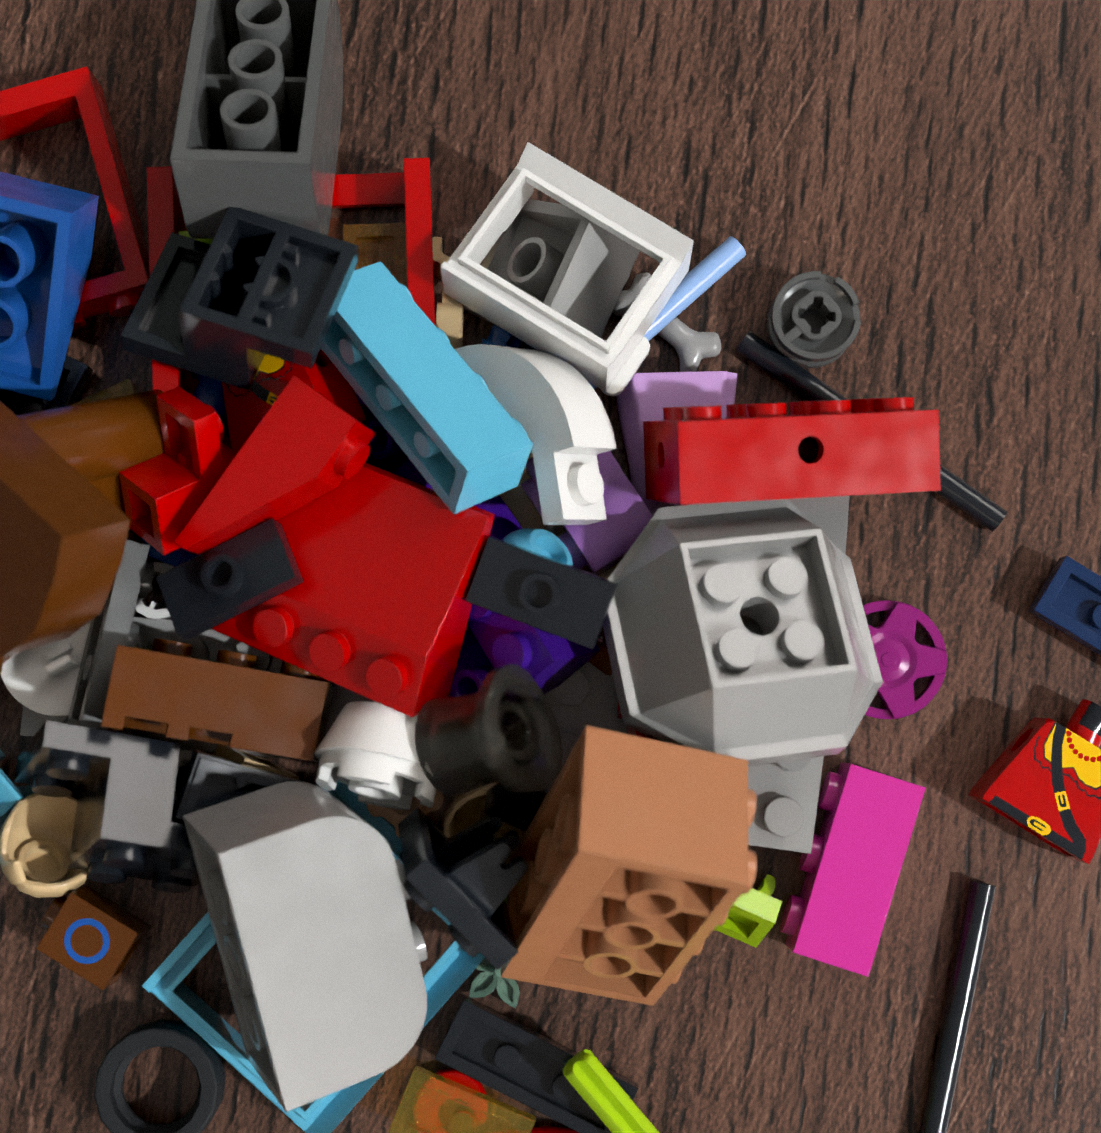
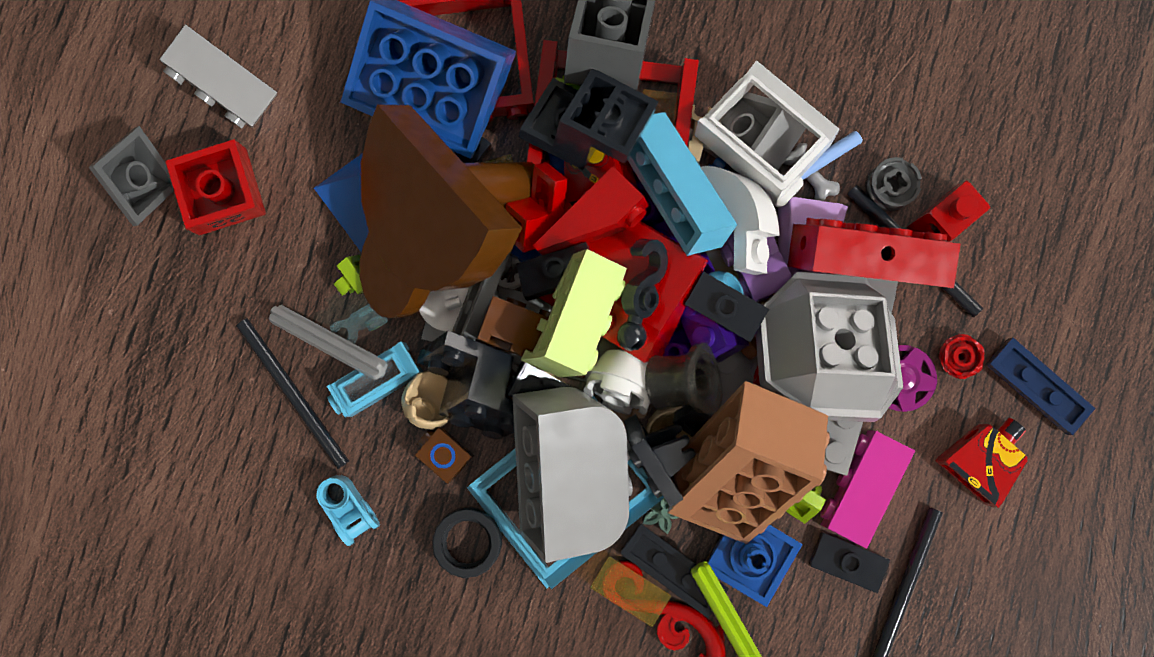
camera: 15 degrees right, 0 degrees up
(273, 655) = (578, 316): none -> yellowish green wedge
(379, 598) = (640, 294): none -> black piece
(680, 1040) = (755, 566): none -> blue plate
(845, 1003) = (849, 562): none -> black plate
(922, 354) = (952, 212): none -> red torso
(1002, 598) = (972, 352): none -> red plate

